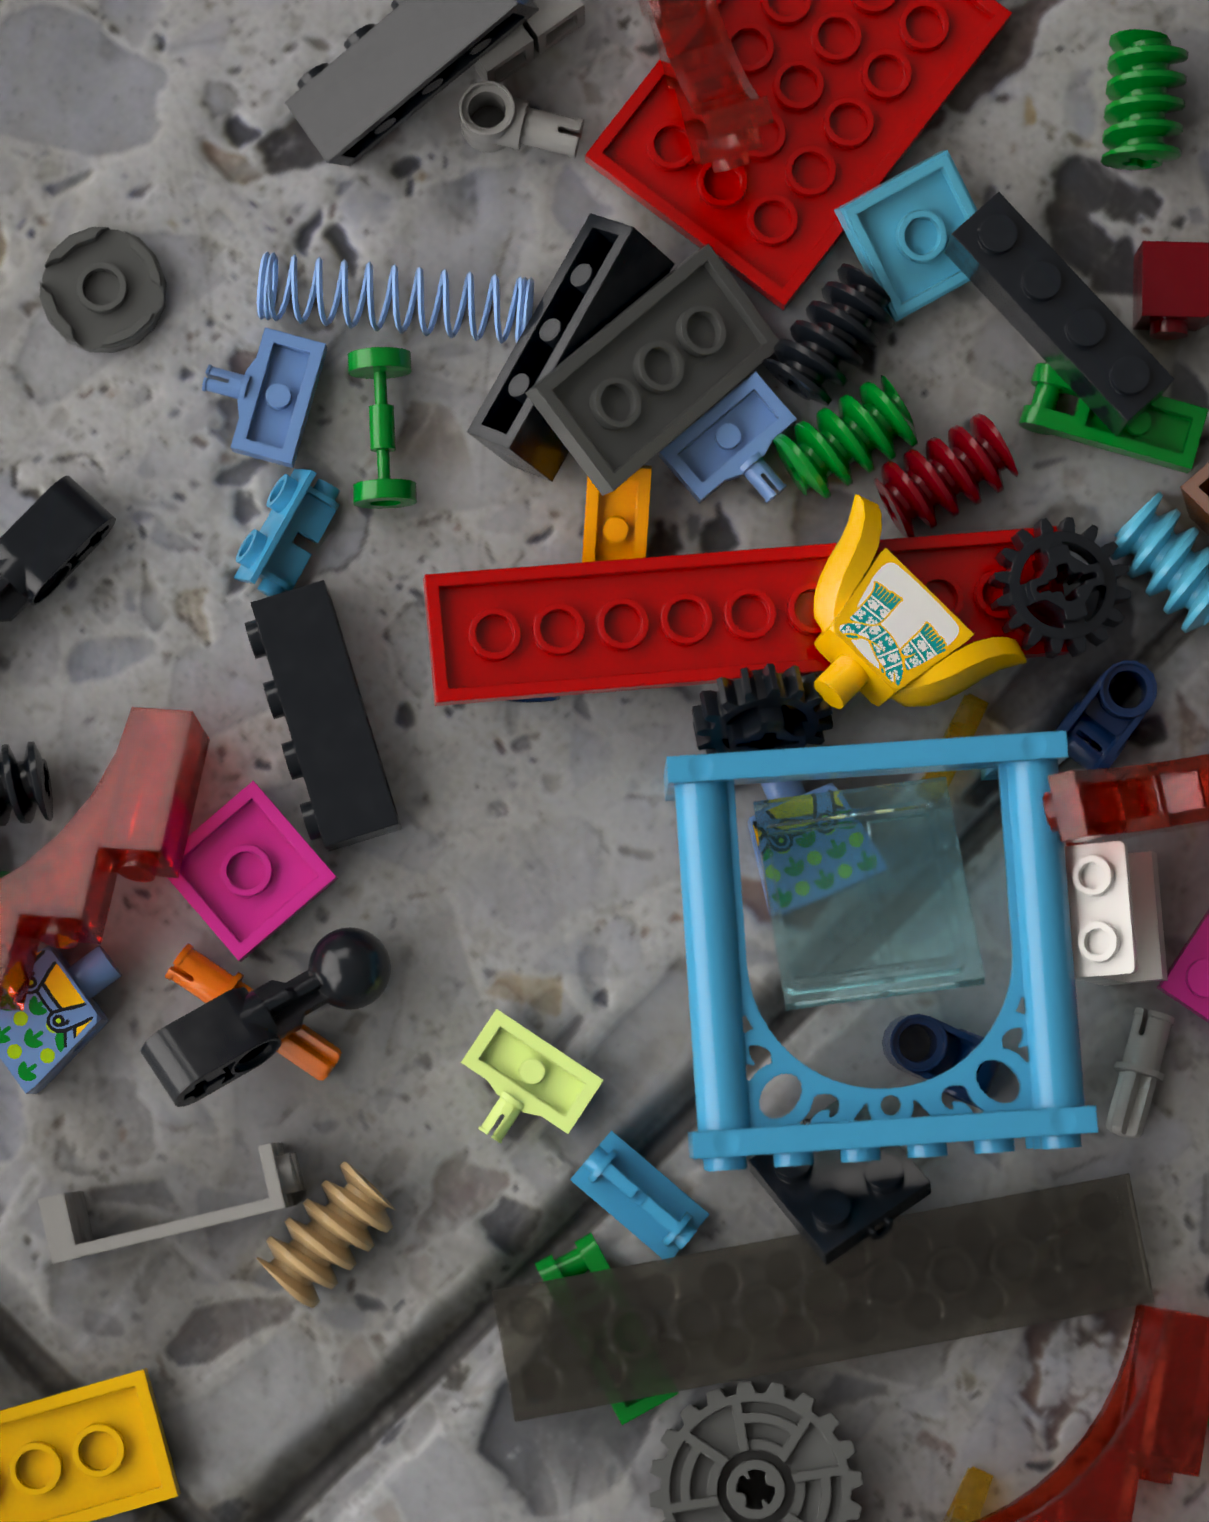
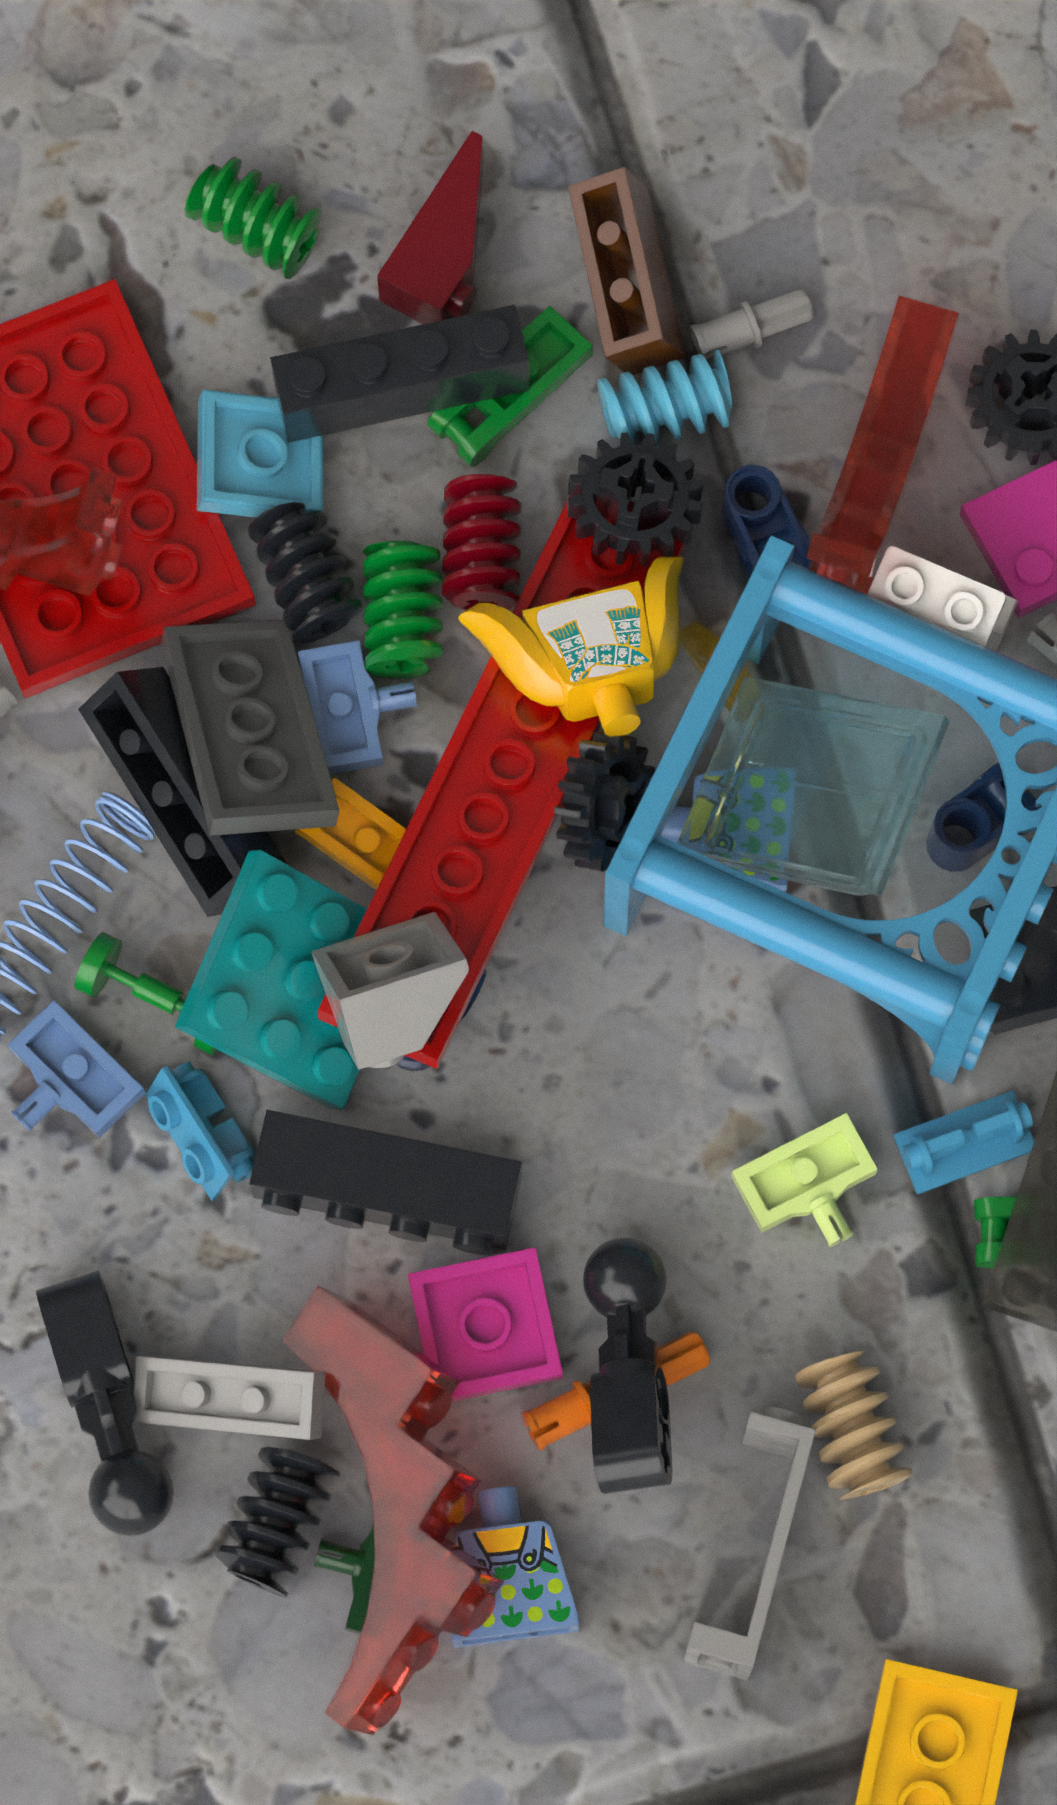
camera: 60 degrees left, 10 degrees down
(61, 690) = (229, 1396): none -> light grey plate
(440, 514) = (261, 985): none -> teal plate
(472, 625) = (391, 987): none -> light grey slope

